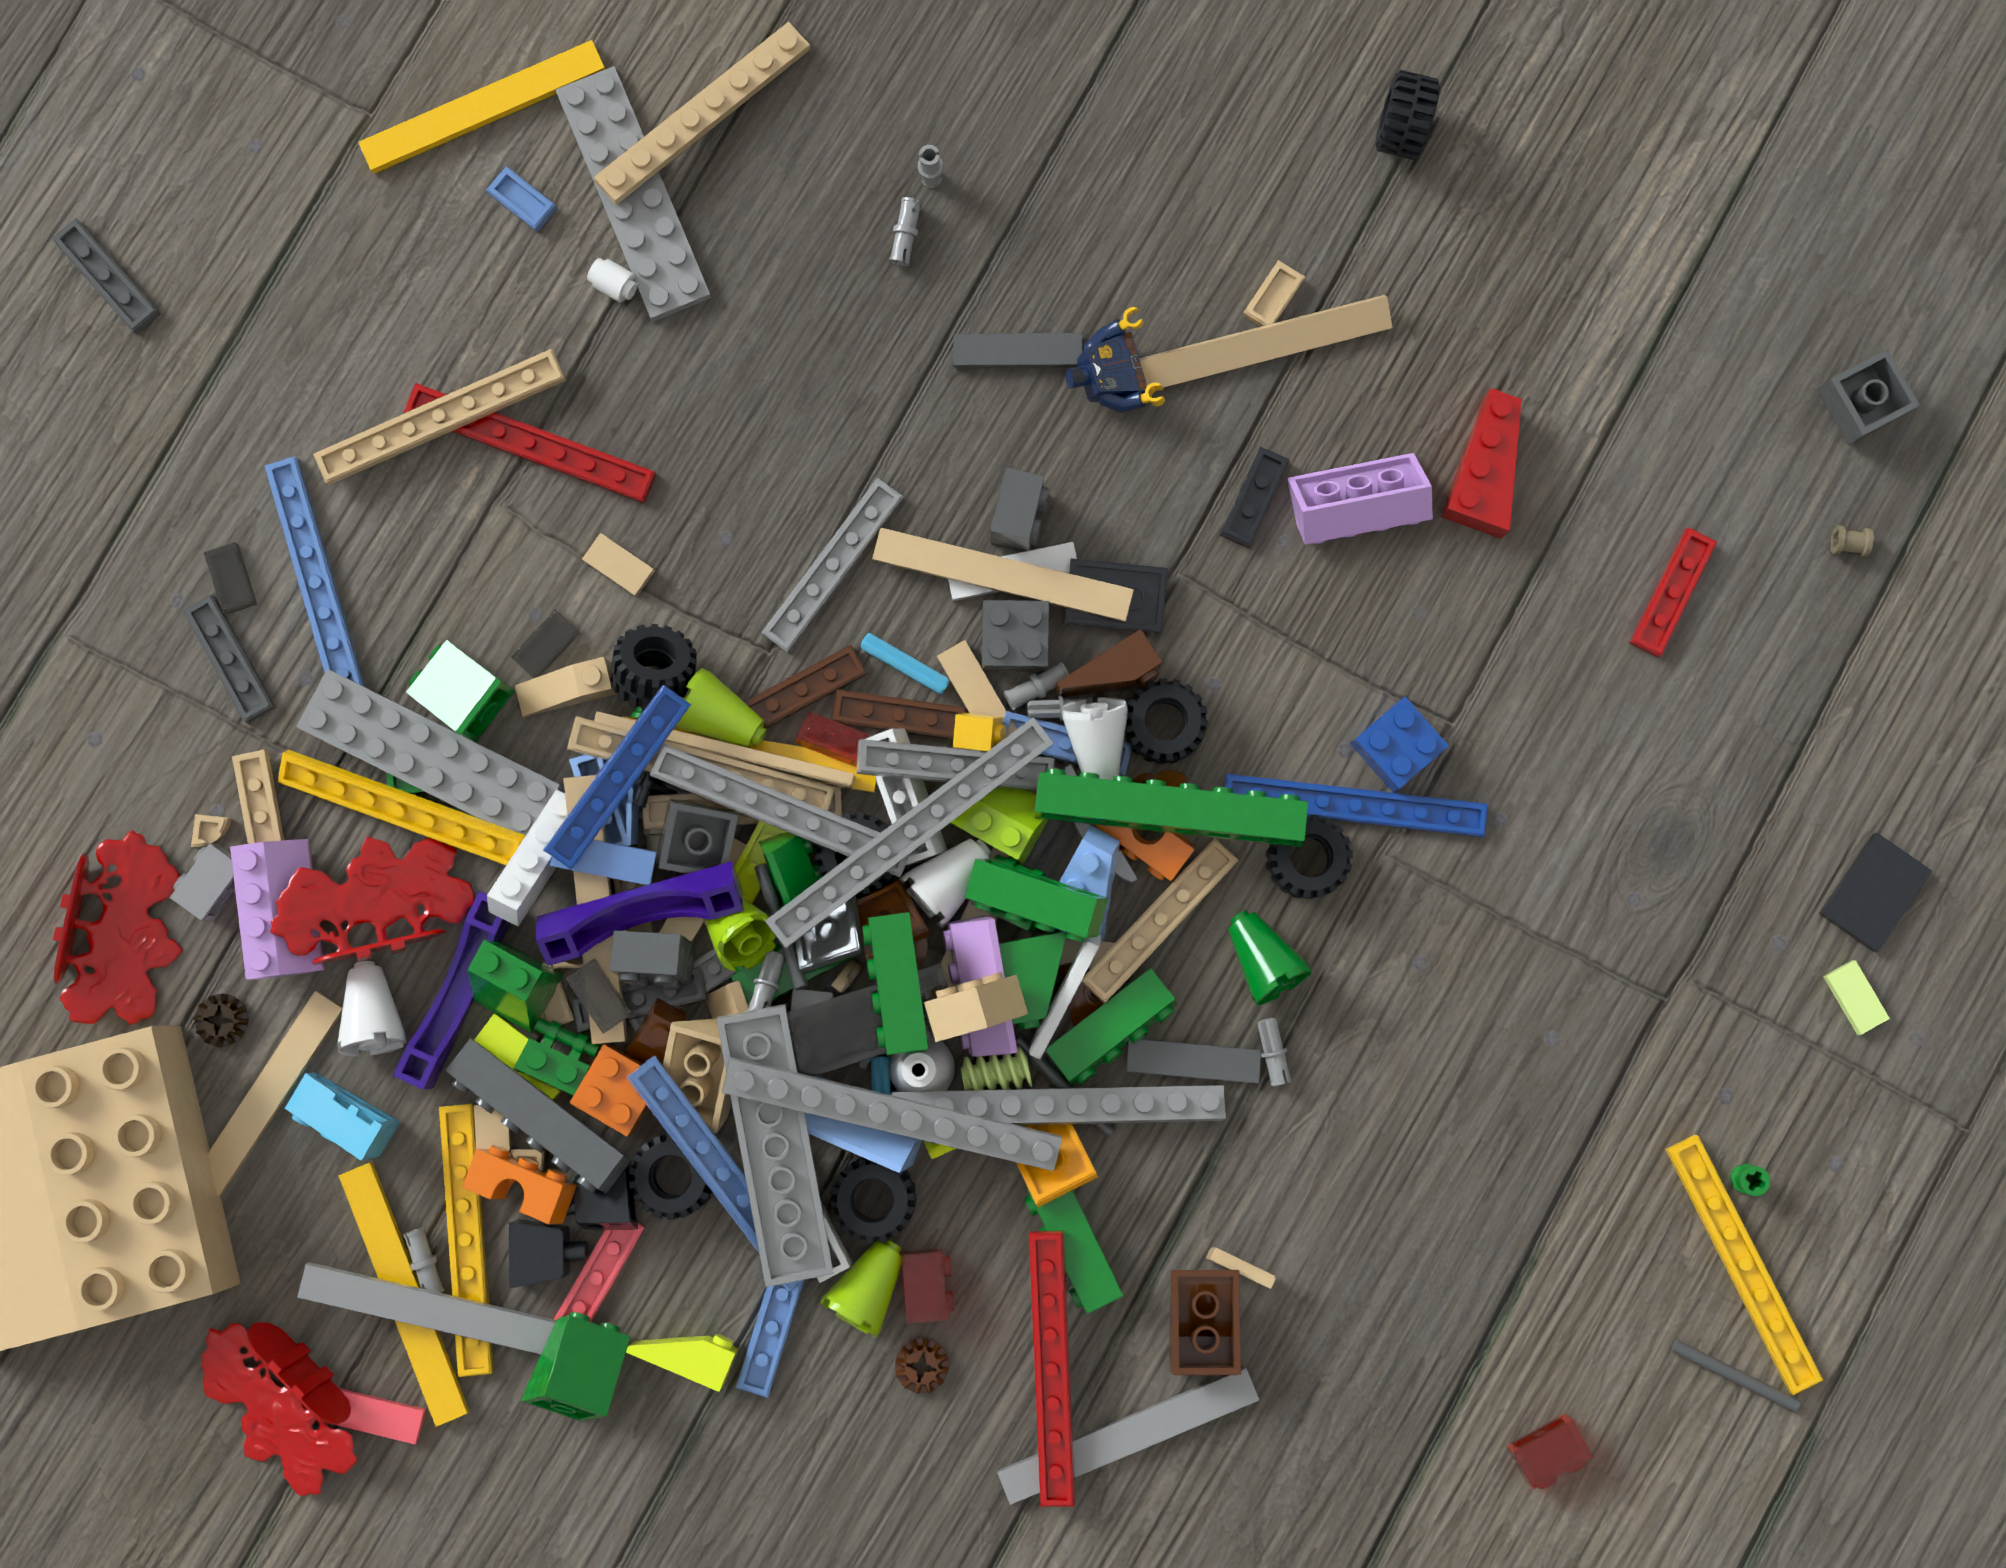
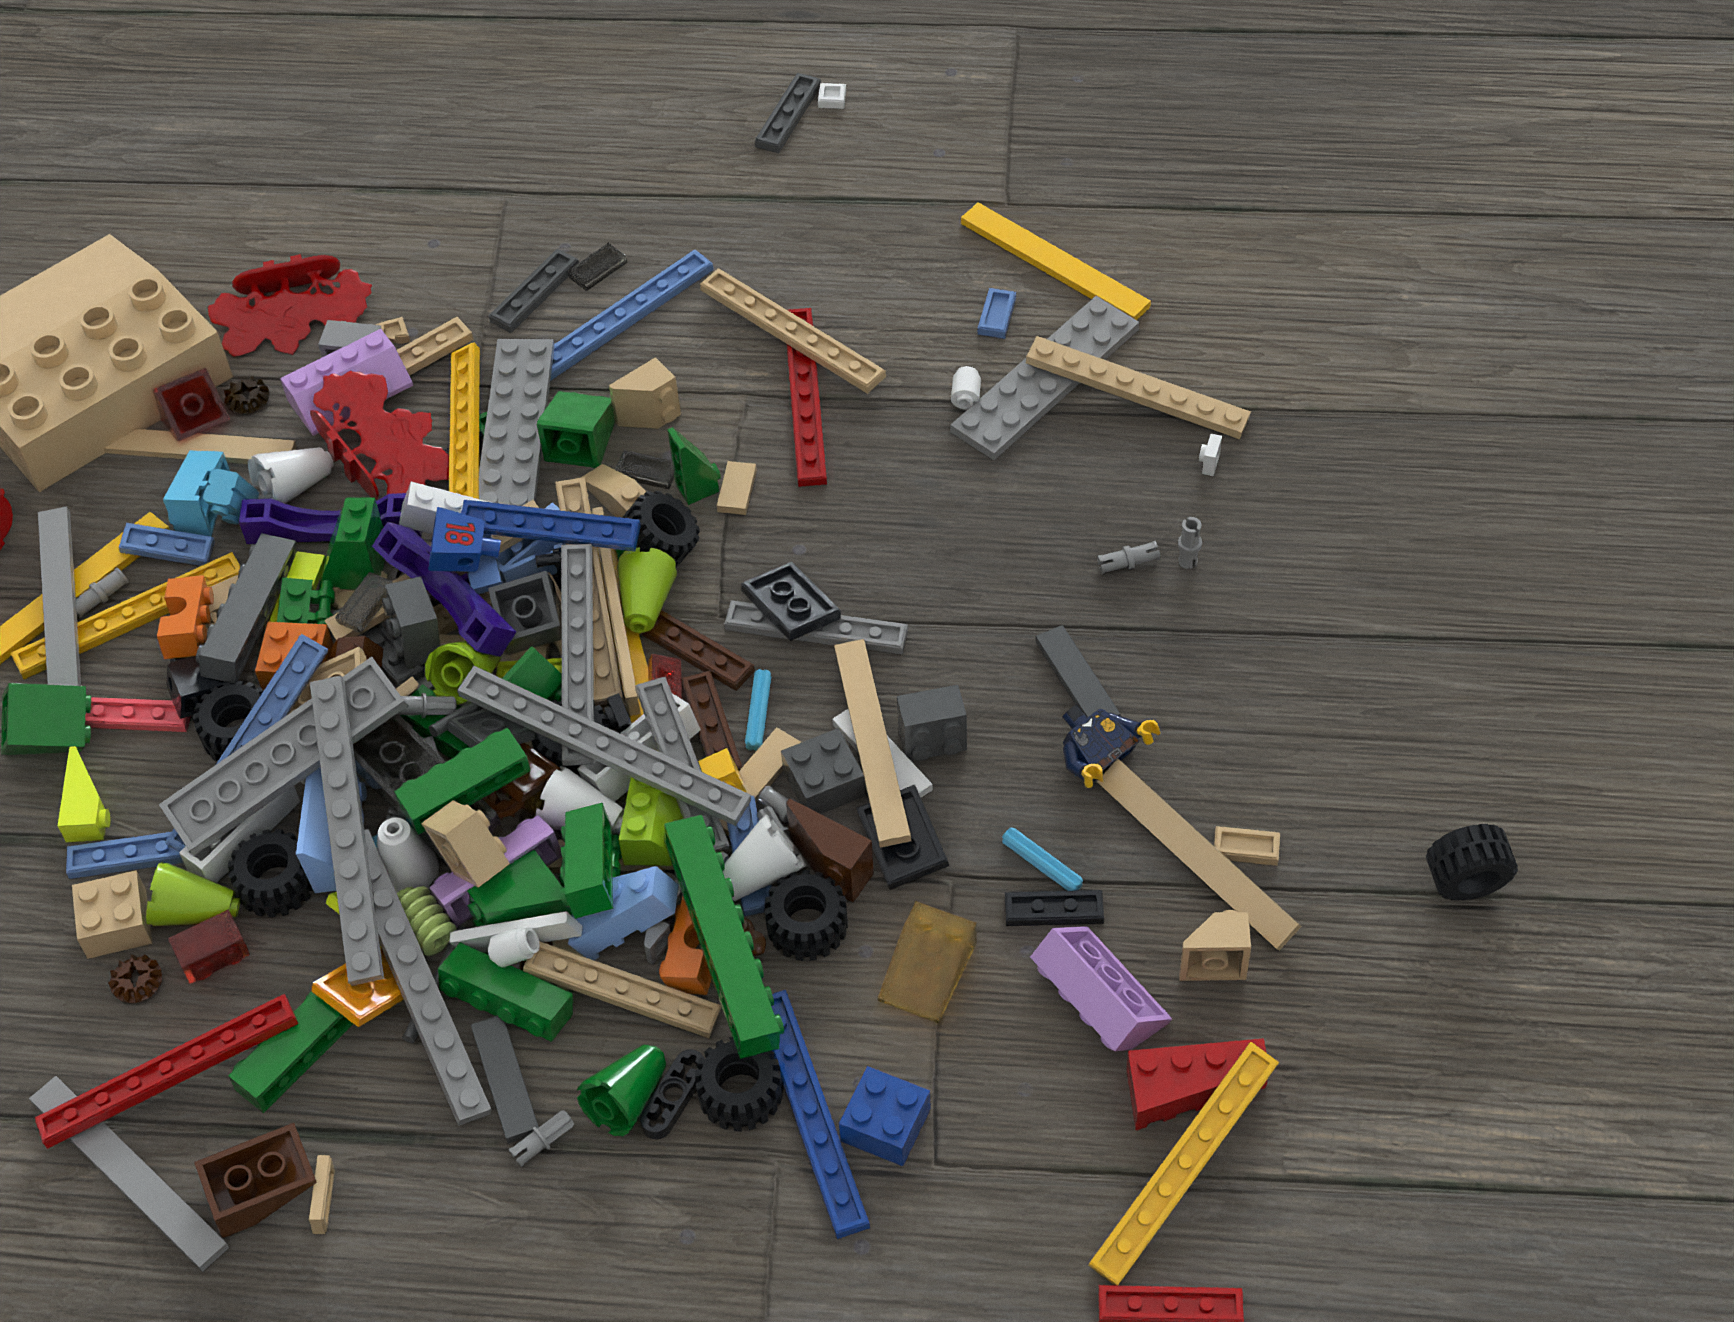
camera: 65 degrees right, 30 degrees down
(106, 217) = (832, 95): none -> white tile
(217, 1086) = (190, 405): none -> clear red slope
(376, 1086) = (226, 494): none -> medium azure brick
(395, 1172) = (166, 544): none -> medium blue tile
(463, 604) = (645, 397): none -> tan slope
(541, 1252) = (135, 662): black torso -> none
(588, 599) = (692, 470): none -> green slope
(598, 877) = (459, 542): none -> blue torso
(795, 575) = (791, 601): none -> black tile
(823, 88) = (1210, 454): none -> white plate
(843, 1368) = (111, 914): none -> tan brick
(861, 801) = (617, 713): none -> black plate
(1086, 1003) = (513, 946): none -> white brick
(1201, 483) = (1042, 860): none -> medium azure axle
(1262, 636) = (928, 961): none -> clear yellow slope
(1286, 904) = (673, 1109): none -> black beam
(1380, 374) = (1217, 949): none -> tan slope
(1568, 514) = (1183, 1164): none -> yellow tile

